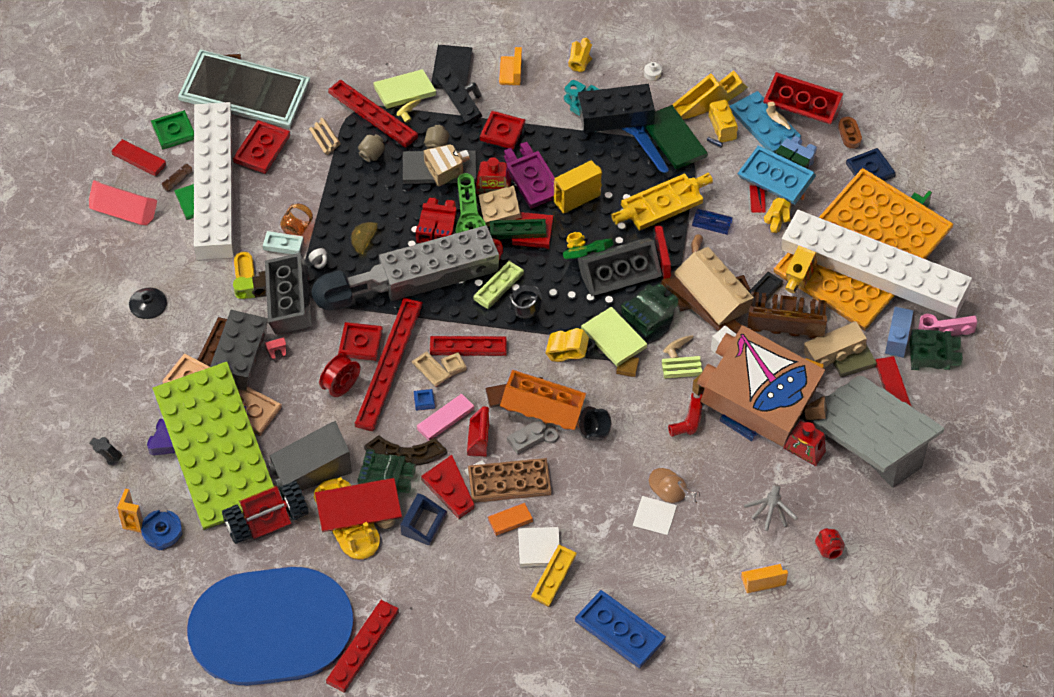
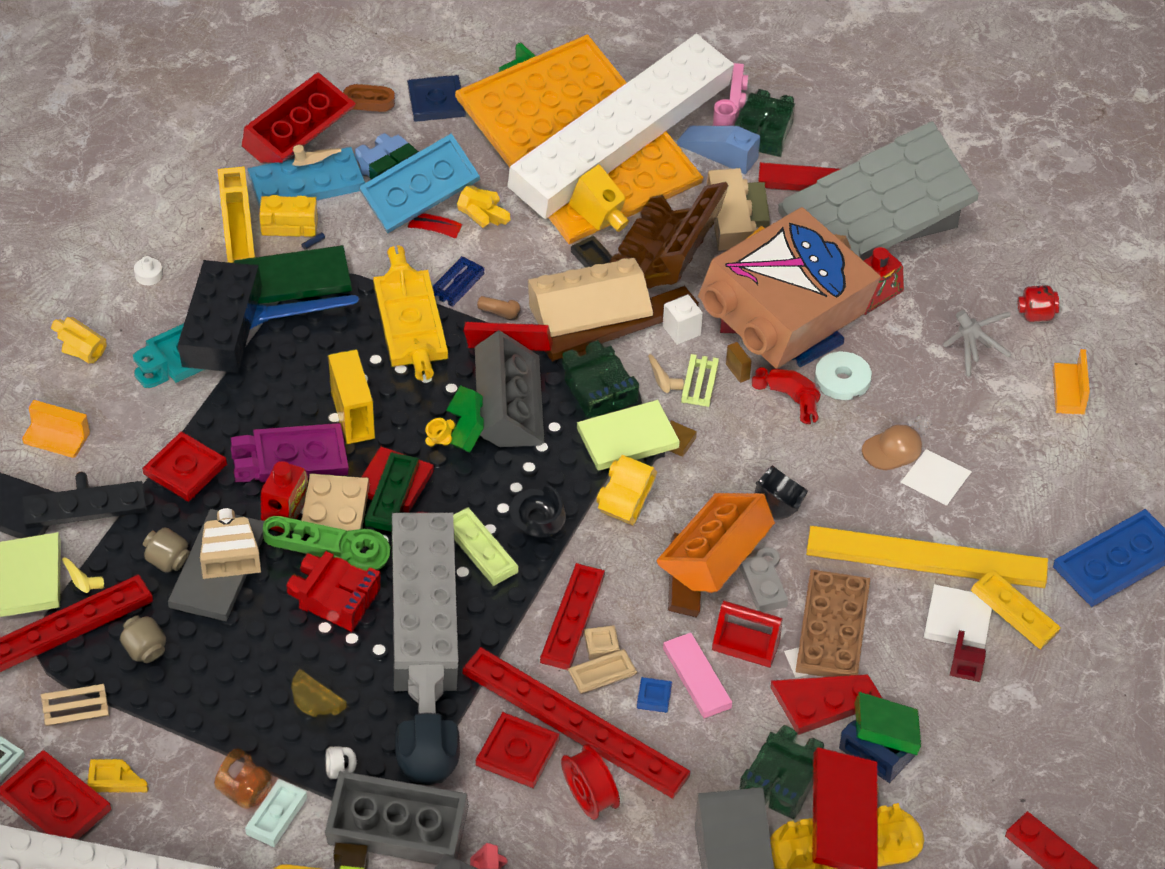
camera: 75 degrees left, 5 degrees down
(287, 168) = (114, 776): none -> yellow tile
(417, 454) = (753, 731): dark brown tile -> none
(434, 518) = (887, 723): none -> green tile
(506, 555) = (967, 660): none -> dark red panel
(510, 519) = (902, 639): orange tile -> none
(582, 522) = (926, 556): none -> yellow tile
(722, 435) = (846, 363): none -> light aqua tile

